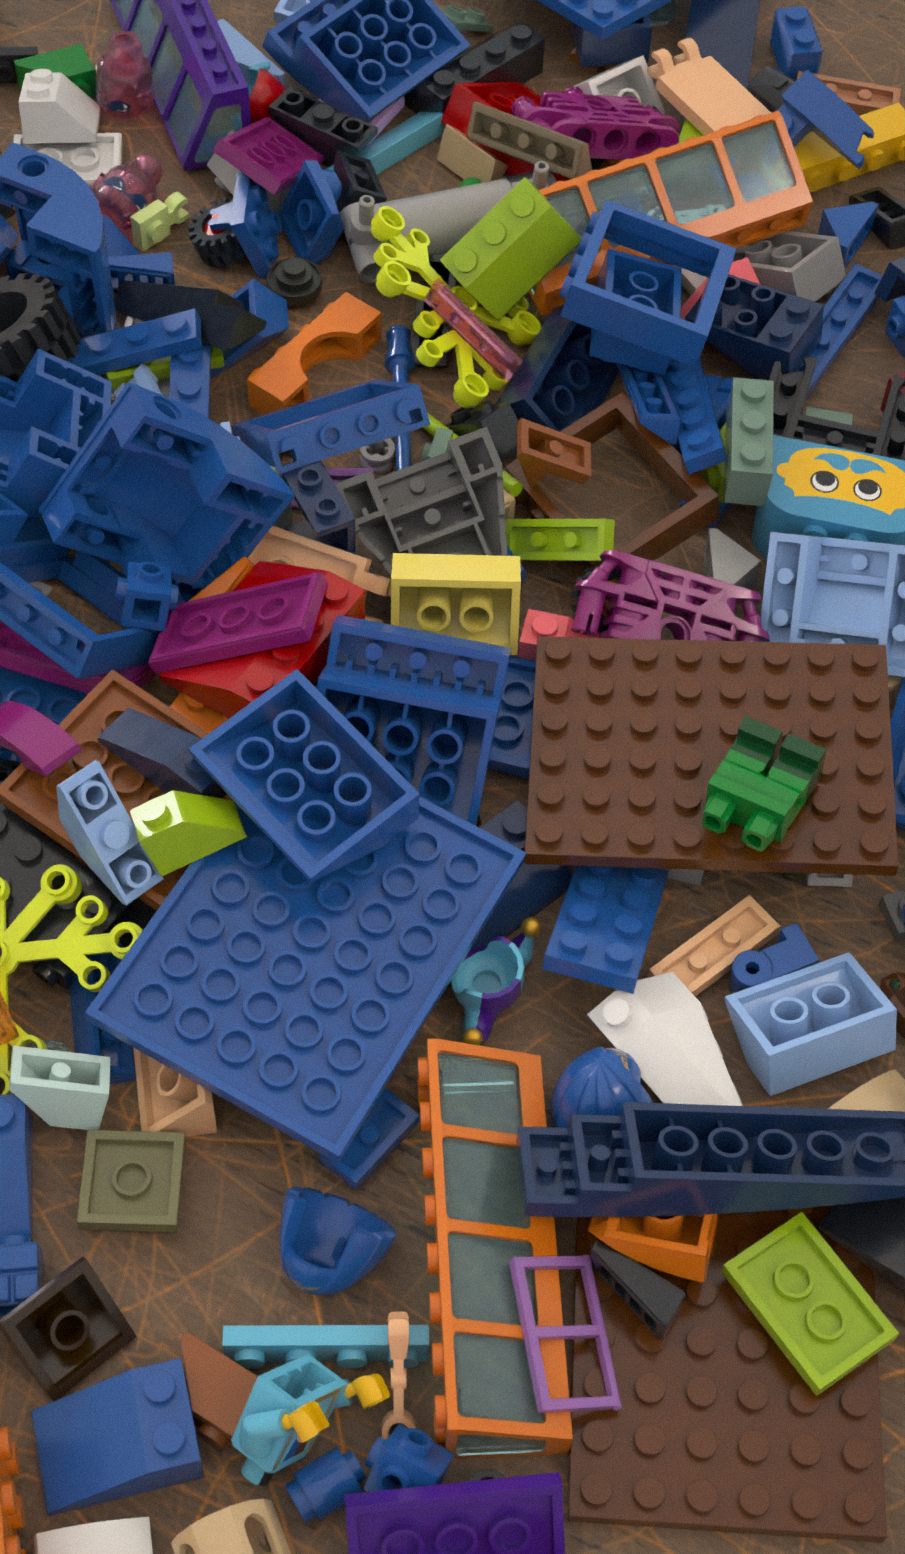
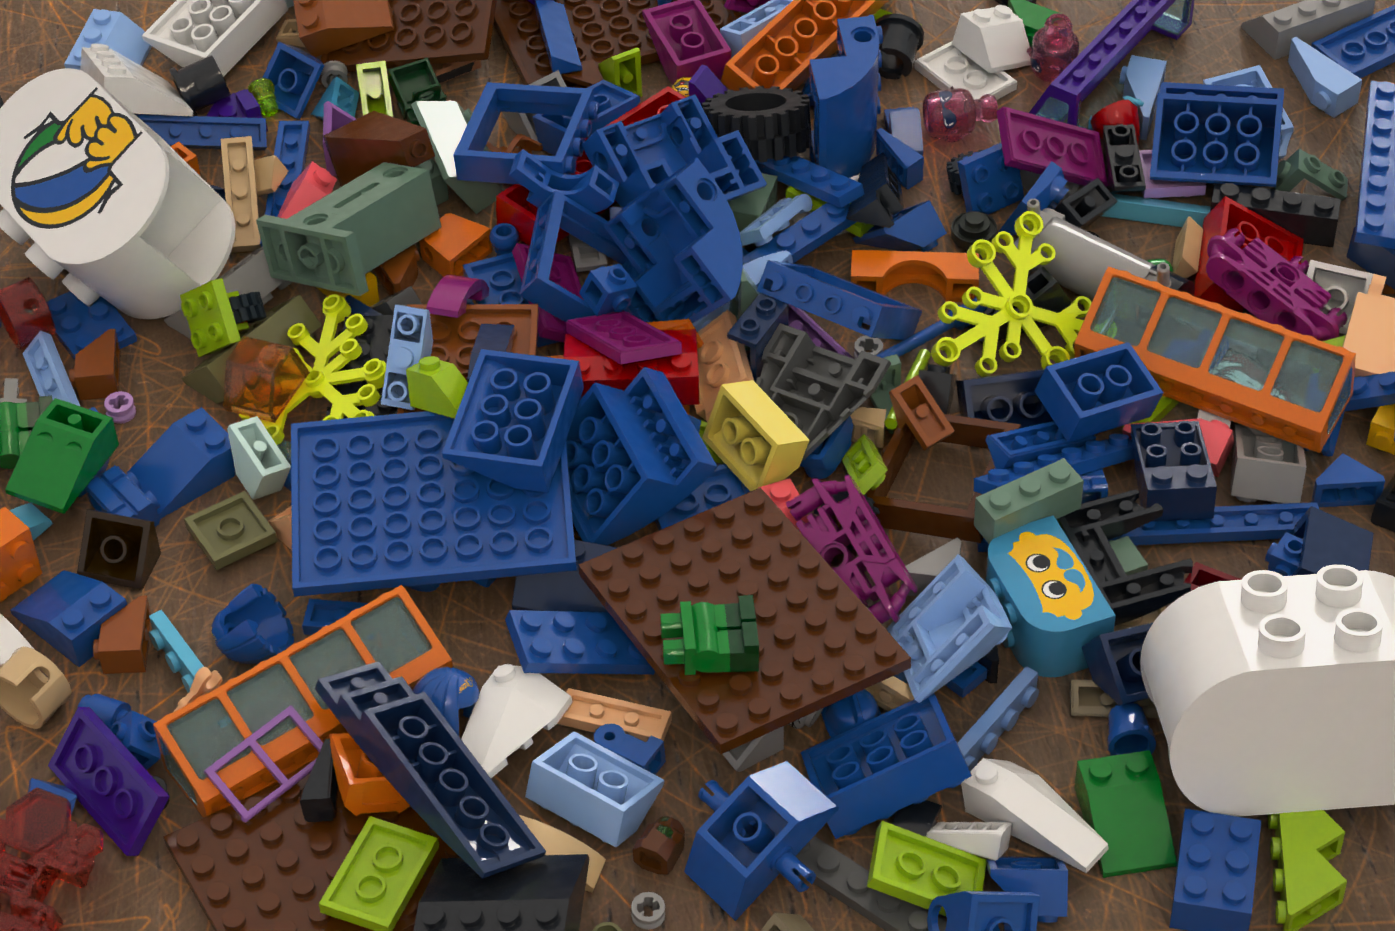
camera: 60 degrees right, 10 degrees down
(154, 221) = (951, 139): yellowish green plate -> none
(290, 1411) = (128, 666): medium azure torso -> none
(473, 330) = (998, 323): clear pink slope -> none
(492, 980) = (483, 615): medium azure piece -> none
(511, 249) = (1073, 293): lime slope -> none
(528, 141) = (1197, 256): dark tan slope -> none
(634, 320) = (1116, 416): blue window -> none

